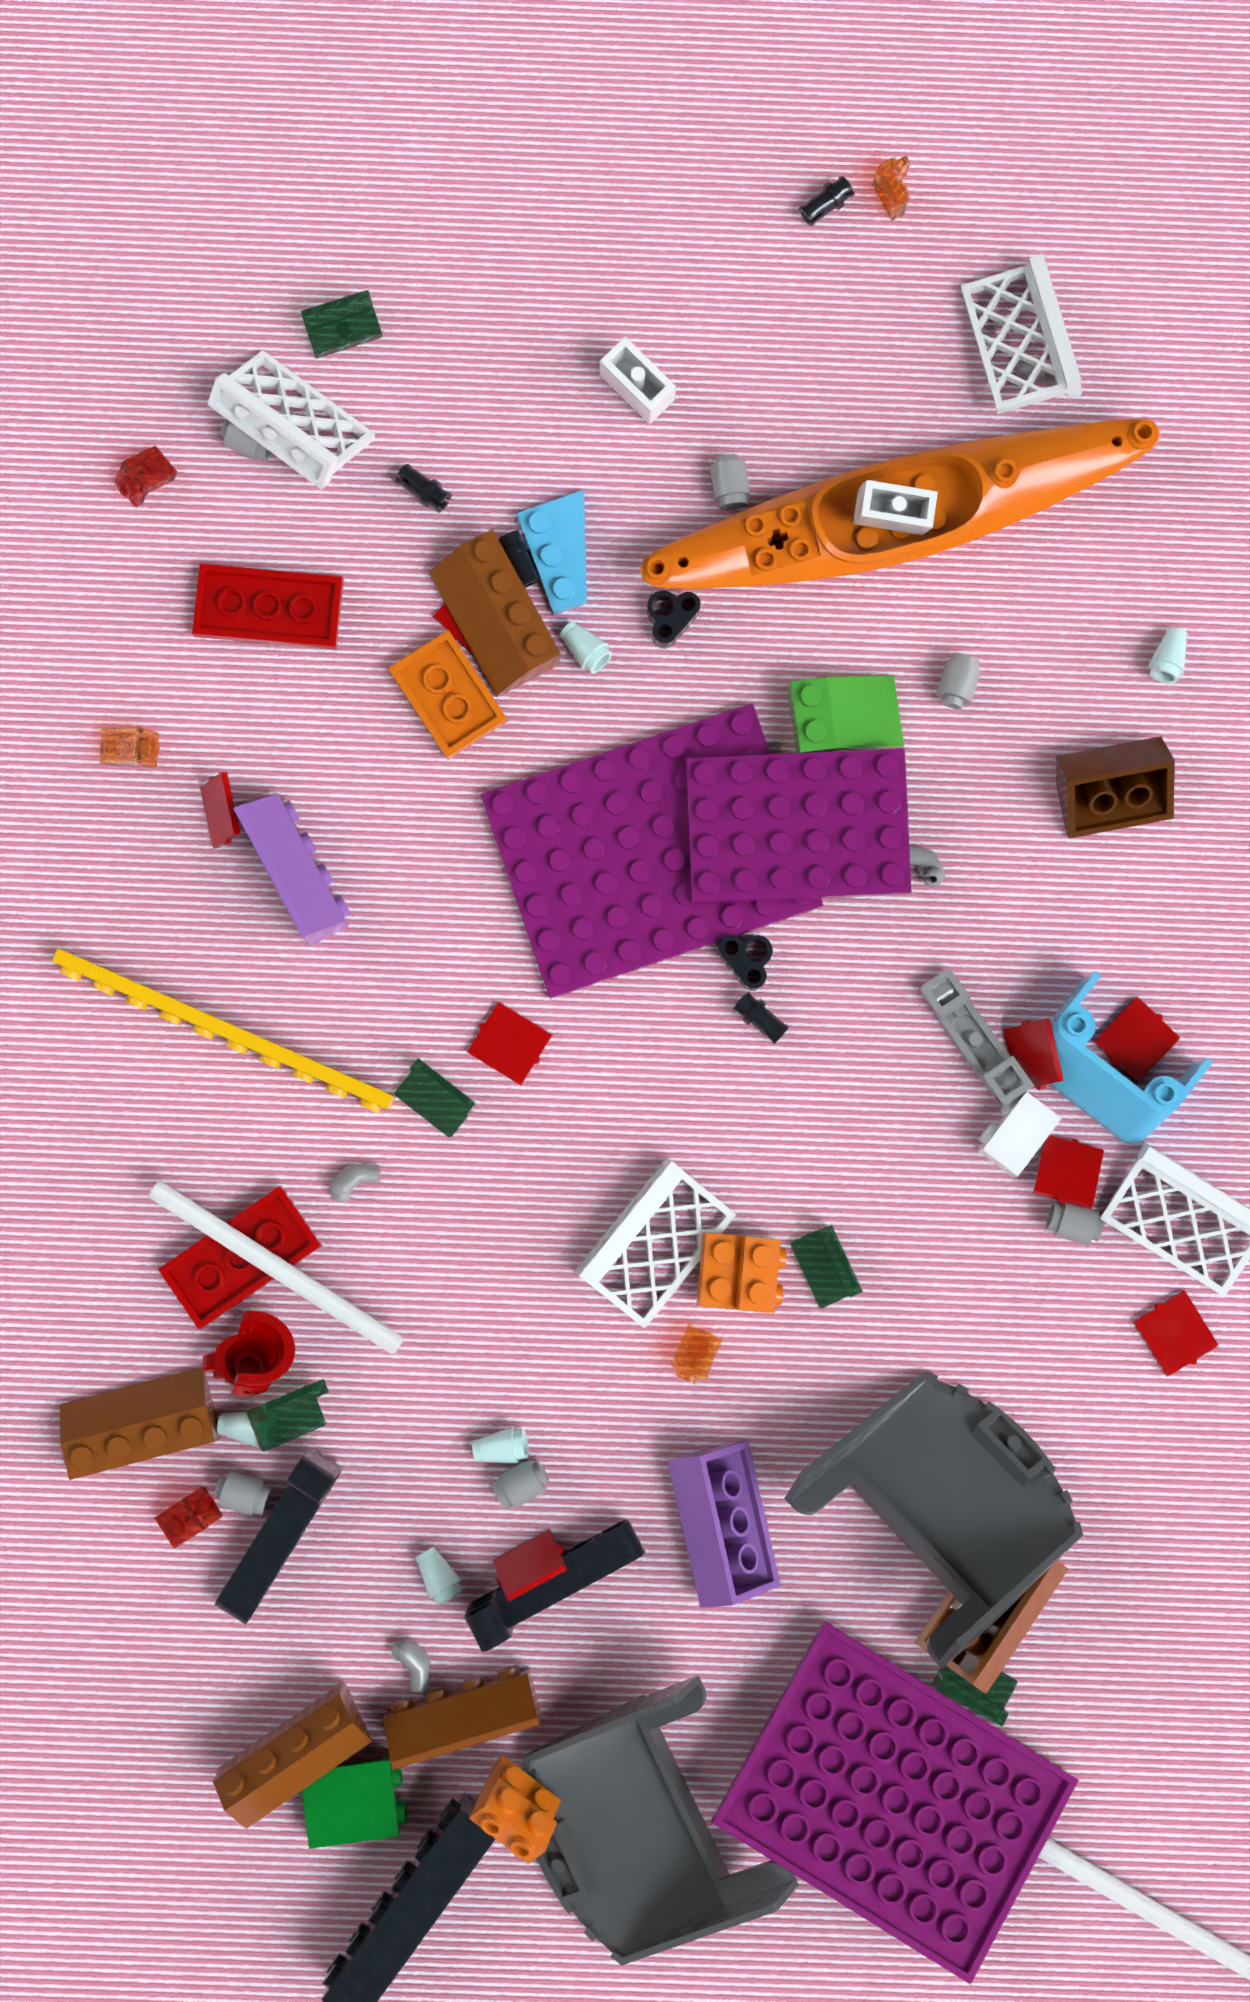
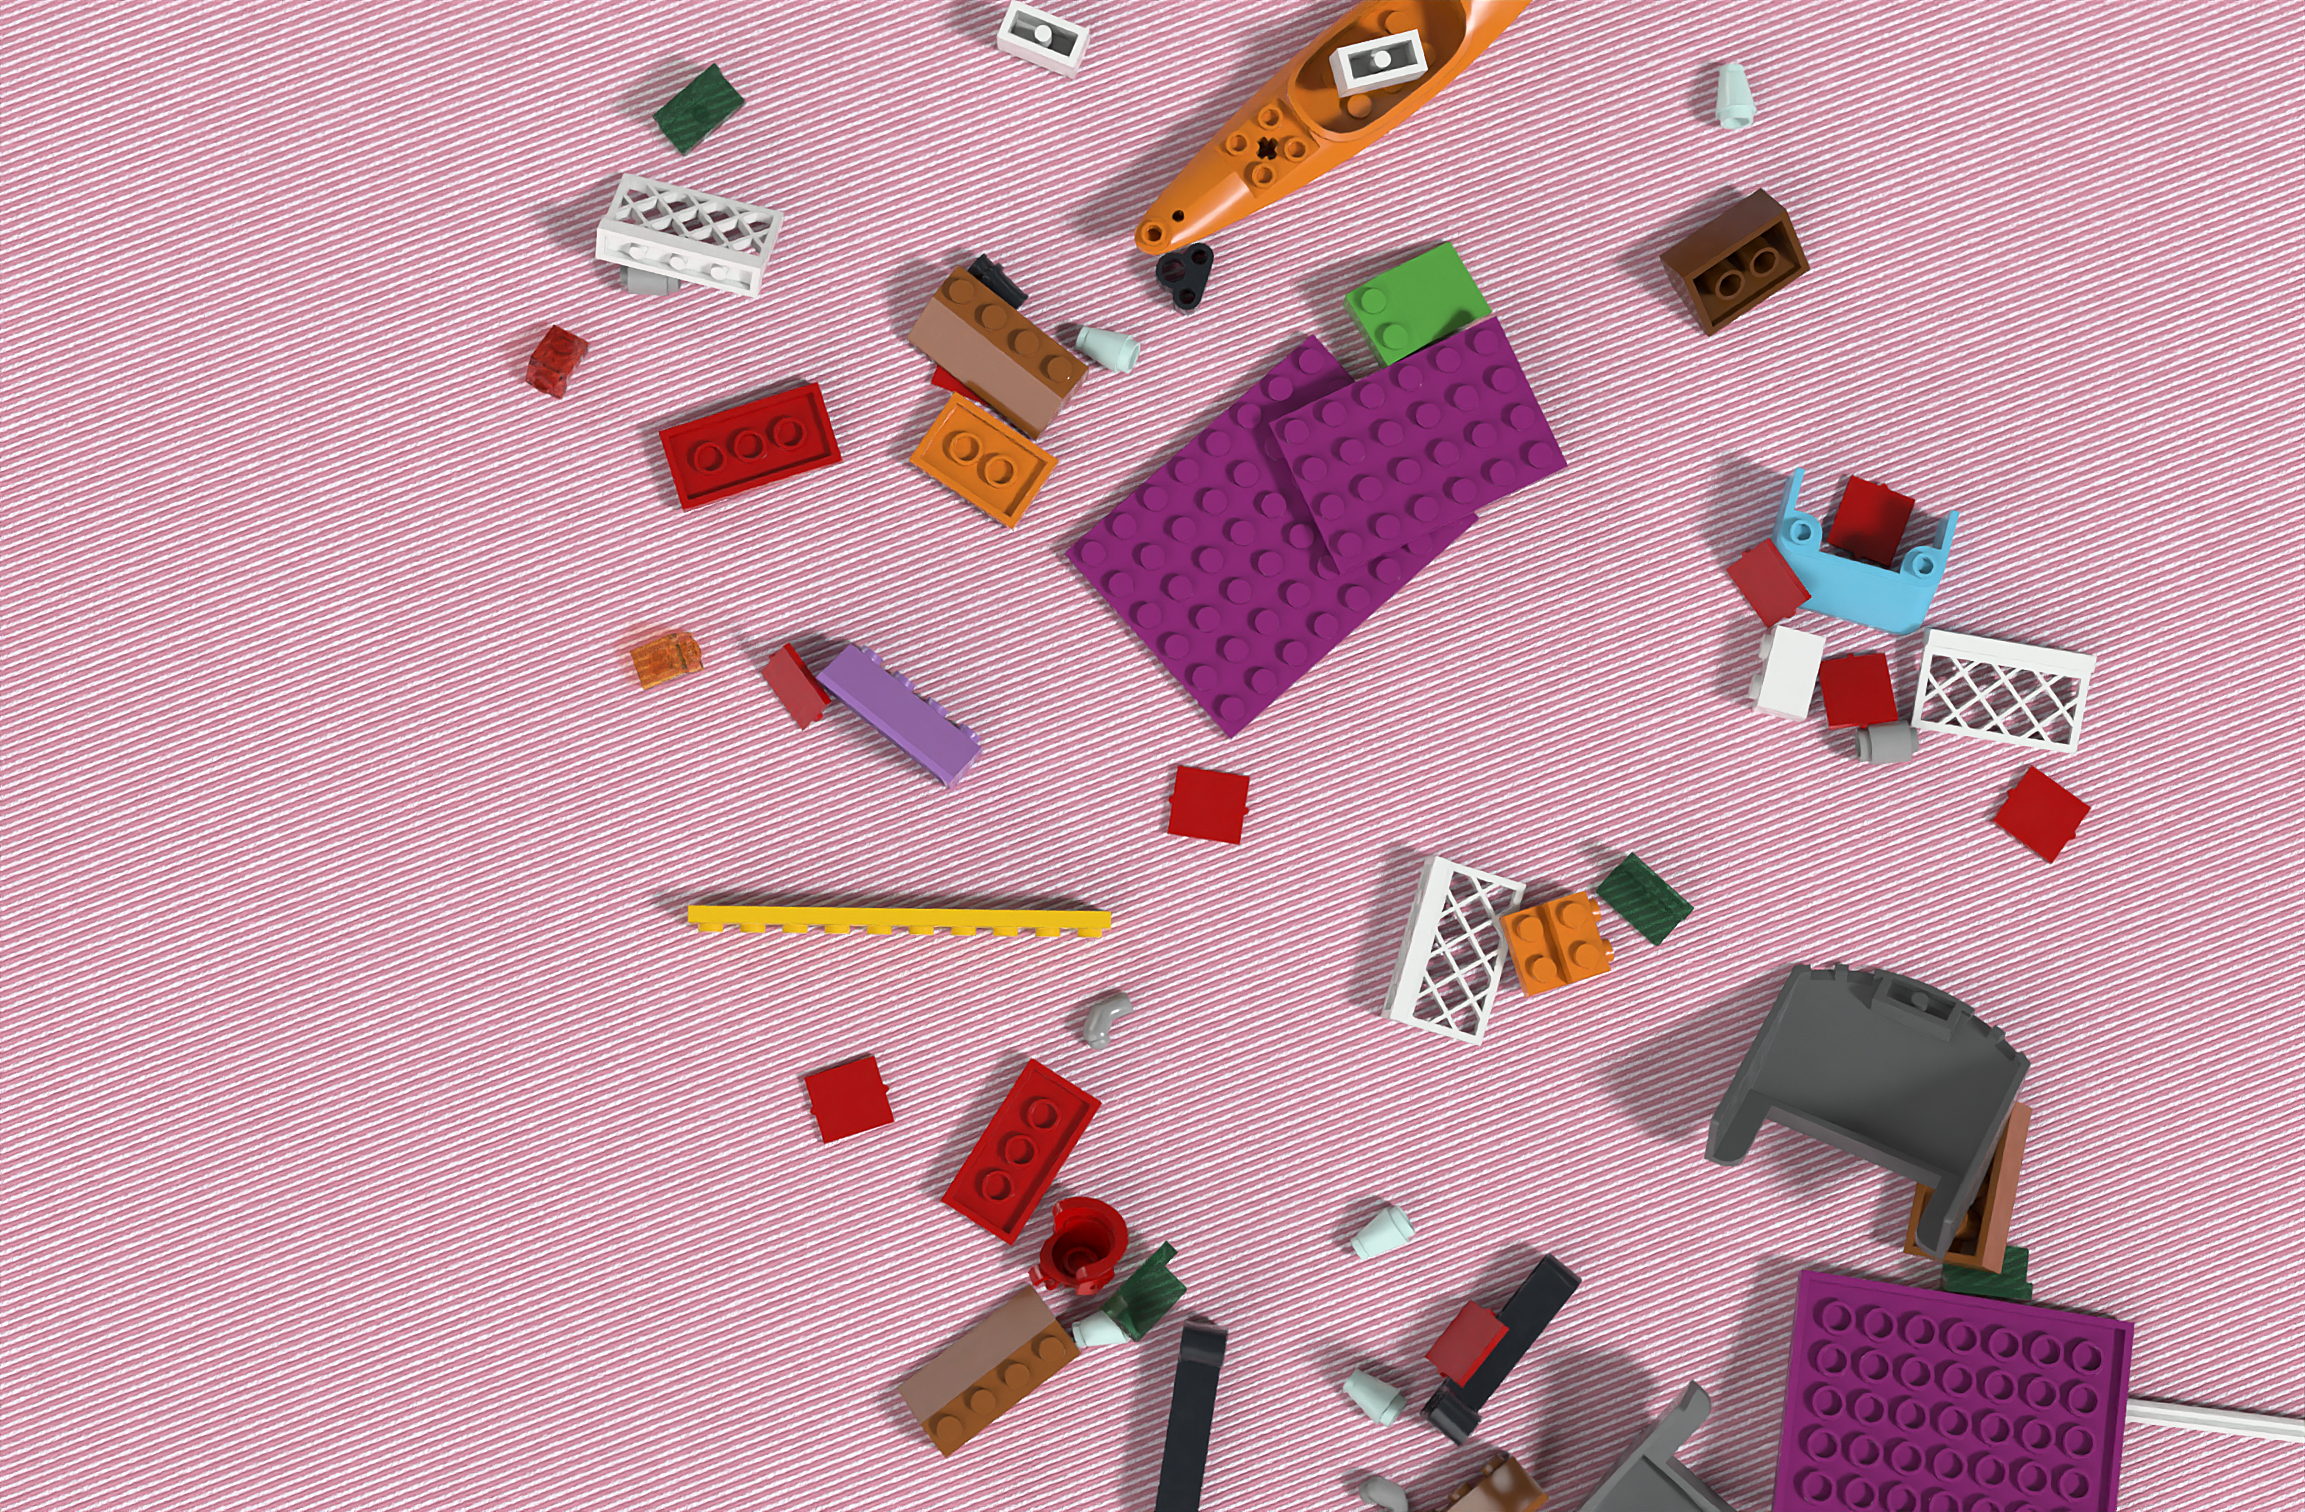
camera: 20 degrees left, 0 degrees up
(123, 1157) = (849, 1099): none -> red piece
(188, 1517) = (1084, 1447): clear red bracket -> none
(243, 1493) = (1132, 1397): light grey brick -> none
(276, 1267) = (1065, 1144): white axle -> none
(428, 491) = (863, 250): black pin -> none
(435, 1098) = (1155, 896): clear green panel -> none
(520, 1484) = (1420, 1263): light grey brick -> none
(558, 549) = (1034, 255): medium azure wing -> none
(695, 1354) = (1546, 1049): clear orange bracket -> none
(724, 1524) = (1651, 1214): medium lavender slope -> none
(730, 482) = (1187, 106): light grey brick -> none
(741, 964) = (1419, 617): black piece -> none
(760, 1017) = (1464, 665): black pin -> none
(927, 865) = (1572, 429): light grey arm -> none
(959, 680) = (1521, 218): light grey brick -> none
(974, 1038) = (1699, 592): light grey slope -> none

